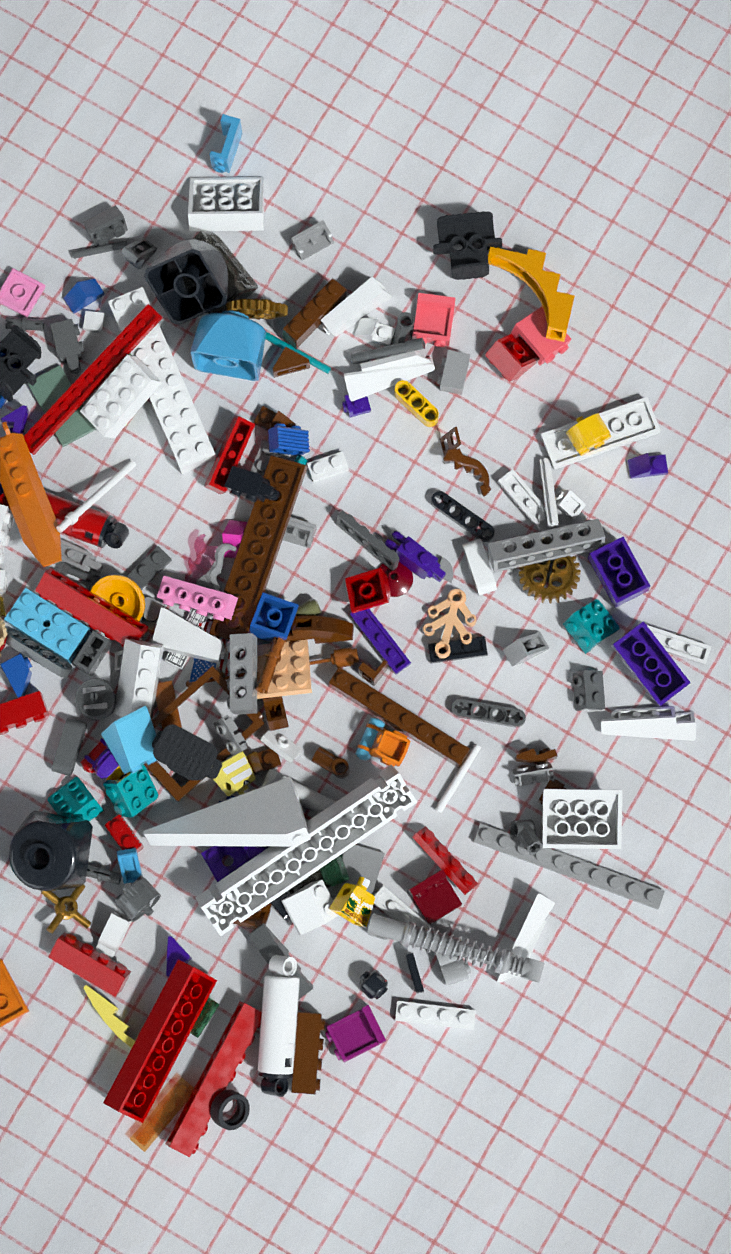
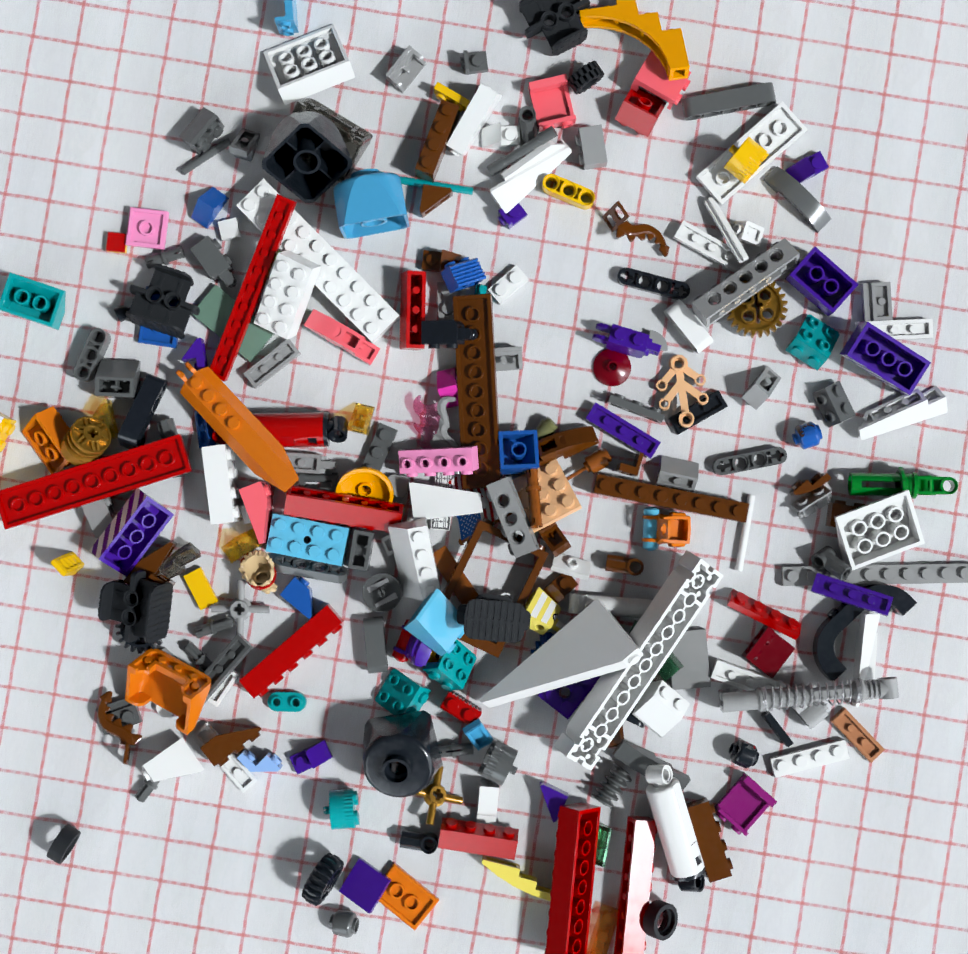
camera: 25 degrees left, 10 degrees up
(15, 577) = (259, 505): none -> coral slope
(31, 945) = (416, 841): none -> black piece
(72, 517) = (290, 431): white bar -> none
(81, 455) = (272, 363): none -> light grey plate
(141, 536) = (361, 419): none -> clear yellow slope
(156, 454) = (342, 336): none -> coral slope
(234, 743) = (530, 584): light grey hinge -> none
(236, 965) = (612, 786): none -> dark grey piece
(258, 308) = (383, 157): pearl gold gear -> none
(341, 277) = (444, 93): none -> yellow plate
(354, 902) = (699, 688): torso -> none
(367, 540) = (579, 343): dark grey plate -> none
(368, 590) = (596, 391): red slope -> none
(377, 257) = (474, 62): none -> dark grey bracket
(401, 623) = (636, 408): none -> dark grey plate
(416, 698) = (678, 474): none -> light grey panel
(472, 307) = (585, 77): none -> black tyre
(490, 1011) = (857, 734): none -> nougat tile
(514, 892) = (840, 618): none -> black arch
(533, 870) = (852, 594): none -> dark purple plate
(551, 708) = (807, 435): none -> blue head
(597, 378) = (728, 101): none -> dark grey beam
(629, 490) = (799, 197): none -> dark grey slope
(631, 790) = (915, 484): none -> green piece
(665, 611) = (876, 301): none -> light grey plate

